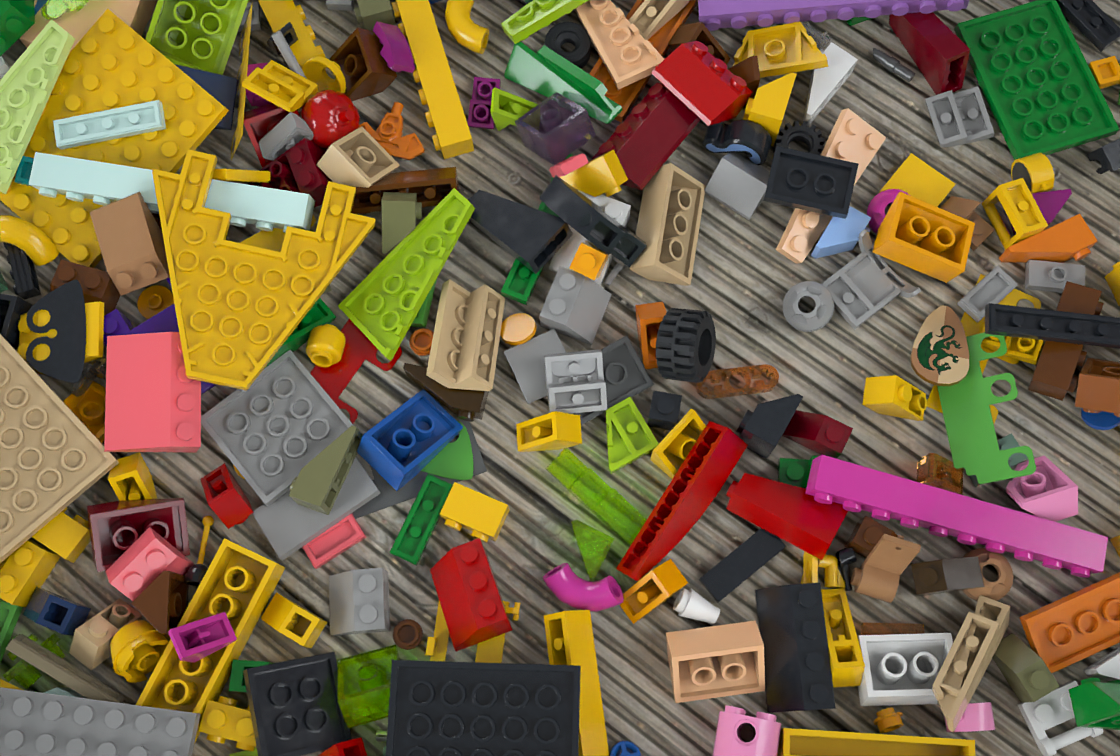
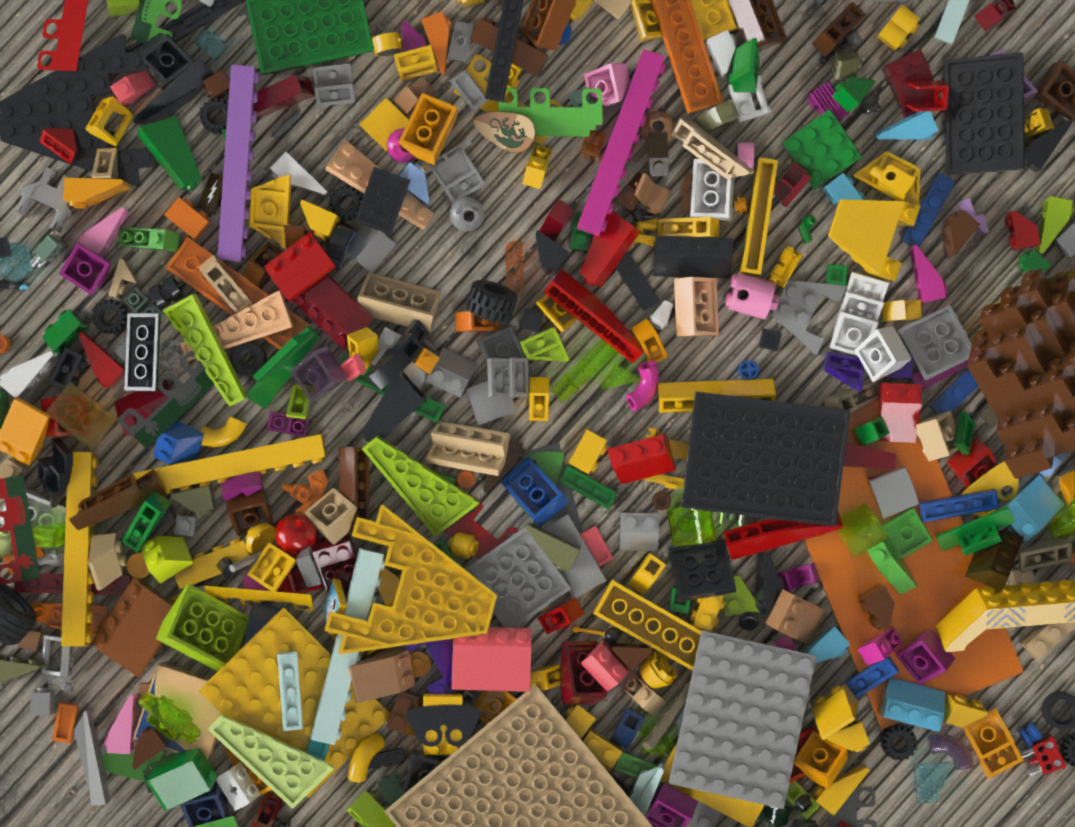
camera: 90 degrees left, 15 degrees up
(202, 637) = (656, 624): dark pink slope -> none
(398, 217) = (378, 489): olive slope -> none
(518, 329) = (463, 413): light orange piece -> none

